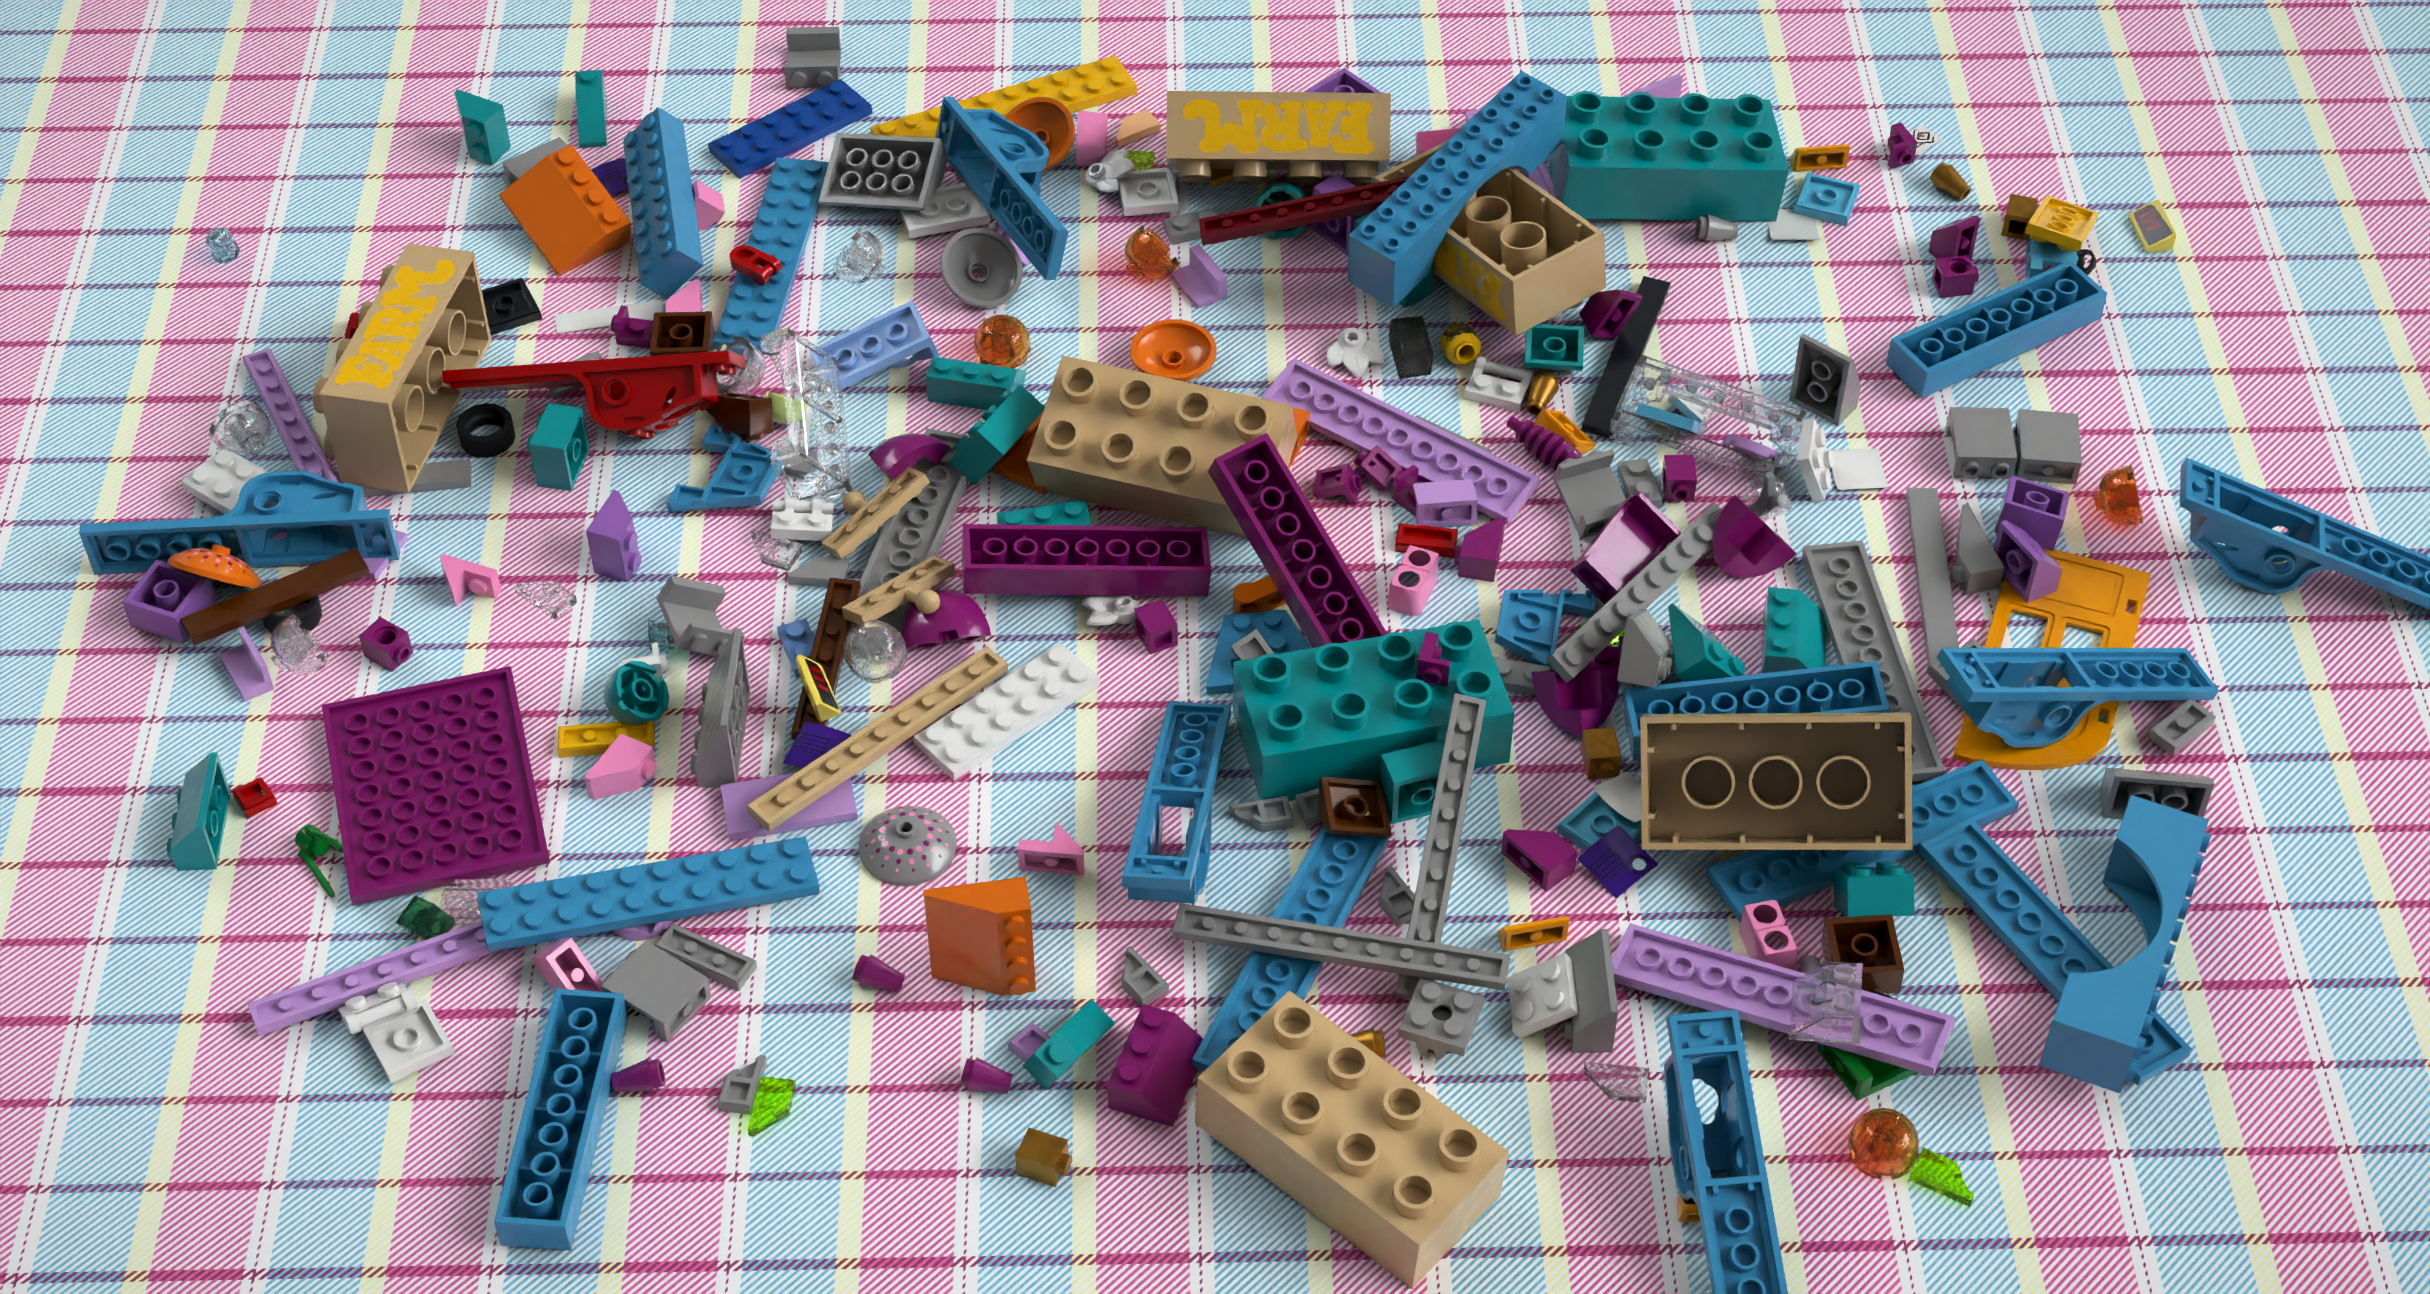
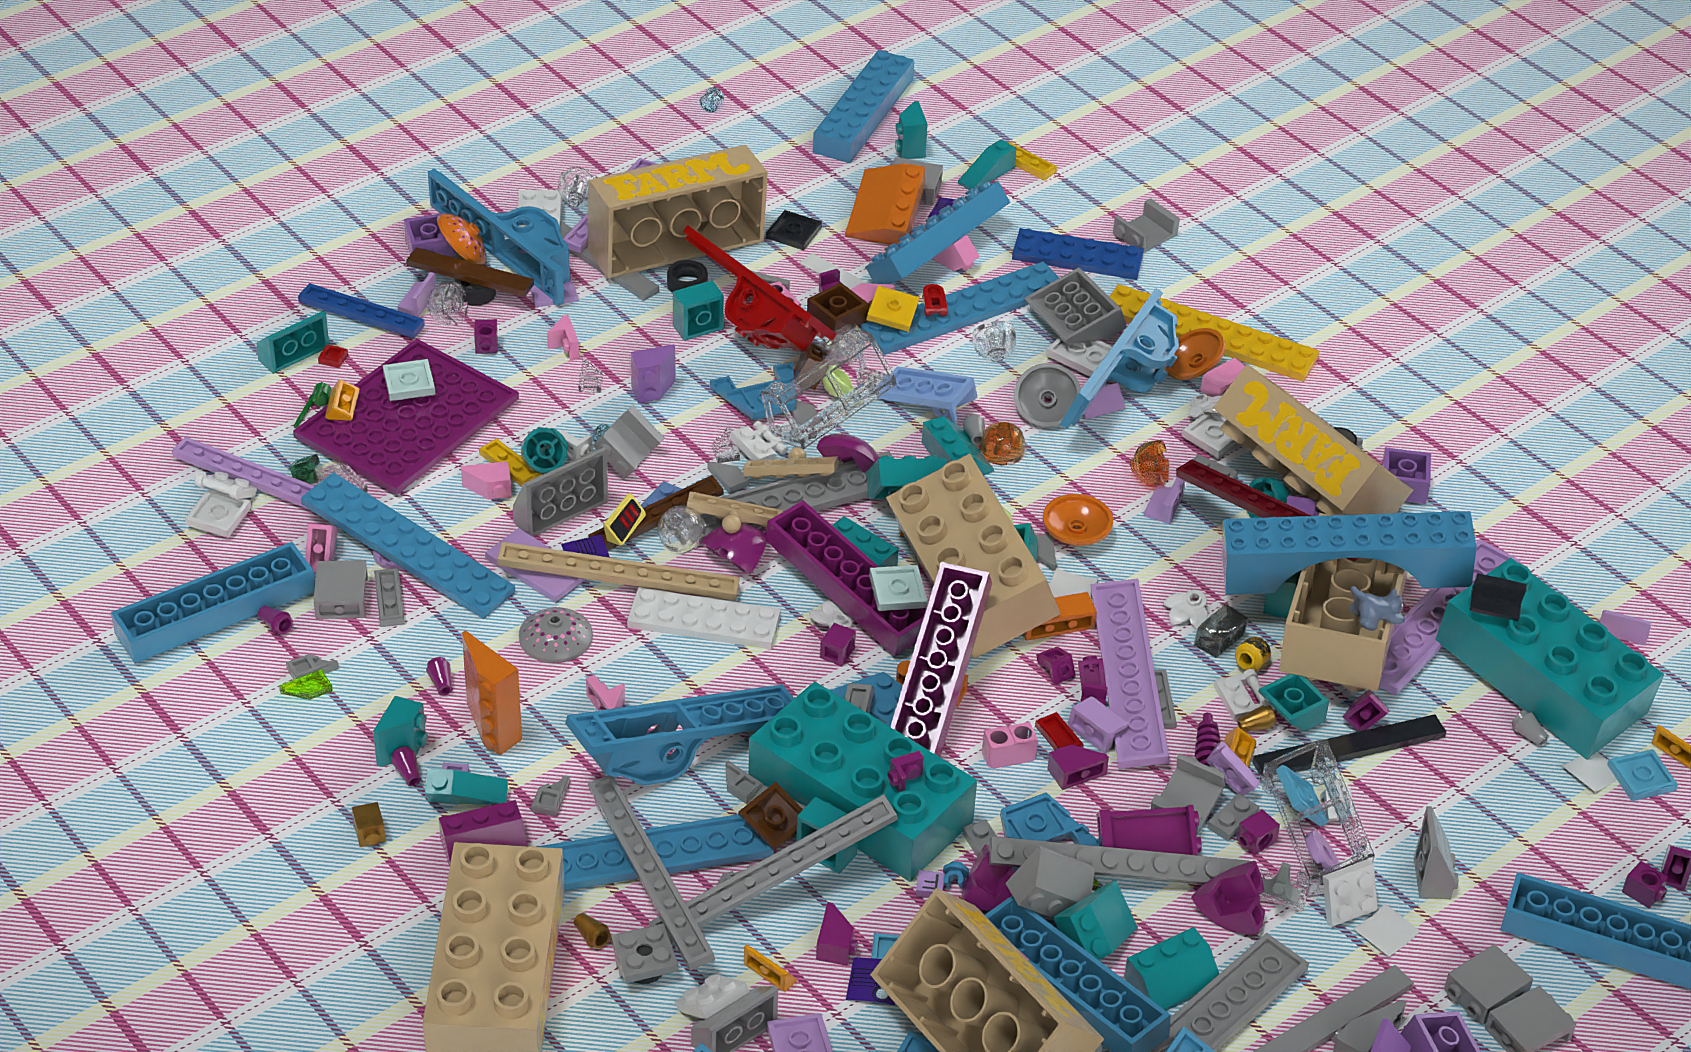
camera: 50 degrees right, 5 degrees down
(210, 729) = (361, 310): none -> blue plate
(355, 826) = (342, 401): none -> light orange slope
(385, 140) = (863, 106): none -> dark azure brick
(392, 746) = (409, 379): none -> light aqua plate
(622, 78) = (1033, 164): none -> yellow tile
(732, 300) = (893, 308): none -> yellow plate
(940, 1048) = (399, 727): none -> teal slope
(962, 348) = (974, 427): none -> light grey cone
(1156, 527) = (898, 587): none -> light aqua plate
(1531, 747) = (928, 882): none -> lavender tile
(1537, 716) = (953, 871): none -> dark azure plate
(1561, 209) = (1376, 608): none -> sand blue animal
(1594, 439) = (1236, 773): none -> lavender panel
(1611, 130) = (1497, 597): none -> black panel

